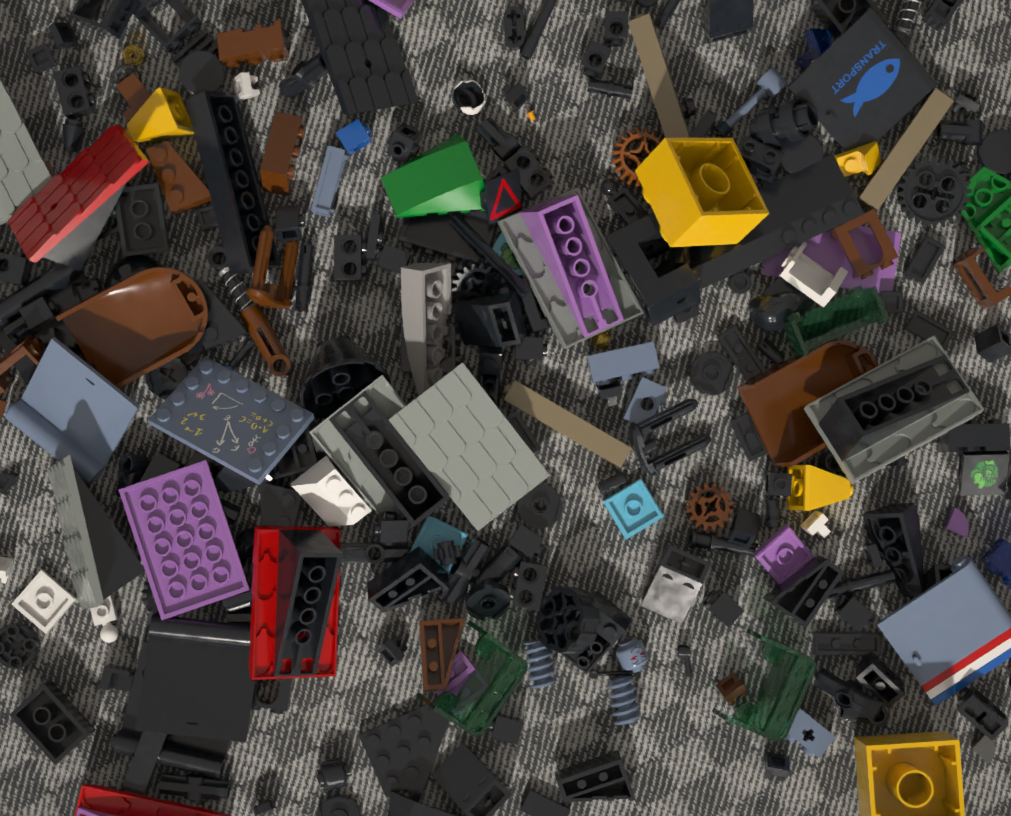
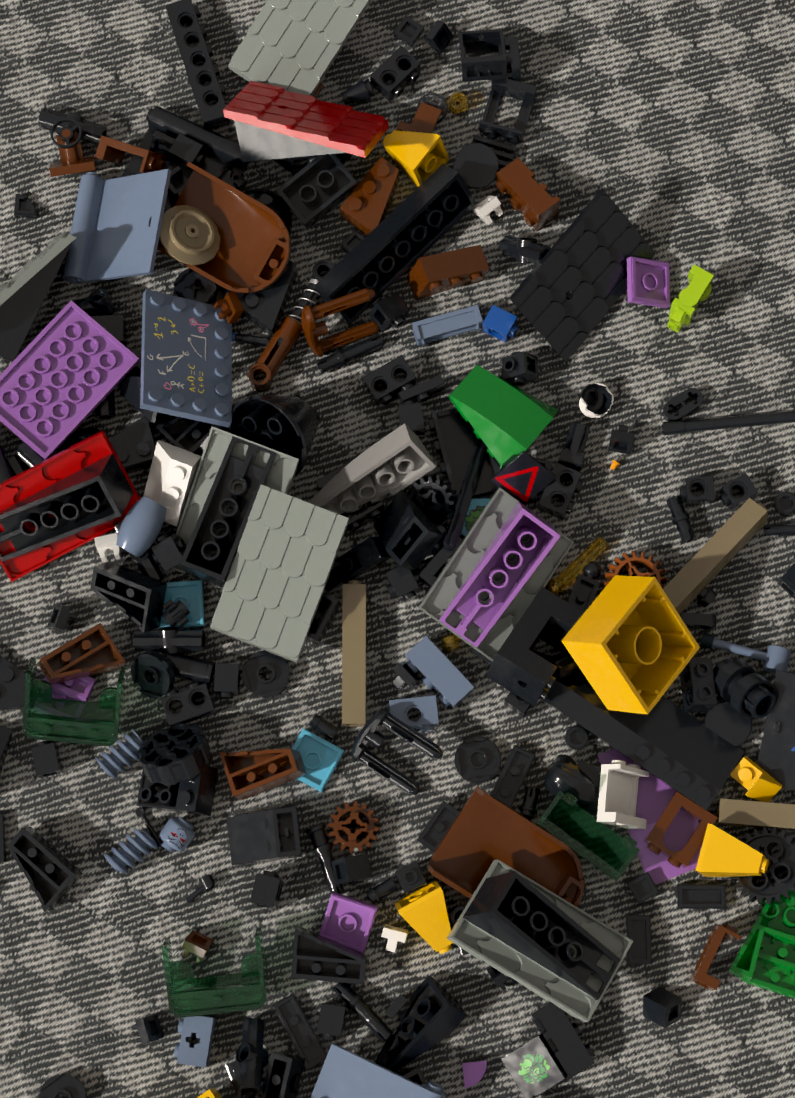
camera: 70 degrees right, 10 degrees down
(120, 354) = (189, 235): none -> dark tan piece
(205, 355) = (230, 307): none -> reddish brown tile
(352, 576) = (107, 545): none -> white tile
(358, 540) = (141, 526): none -> sand blue piece
(601, 204) = (576, 567): none -> clear yellow axle
(620, 556) = (261, 770): none -> reddish brown wedge
(912, 217) = (728, 857): none -> yellow slope

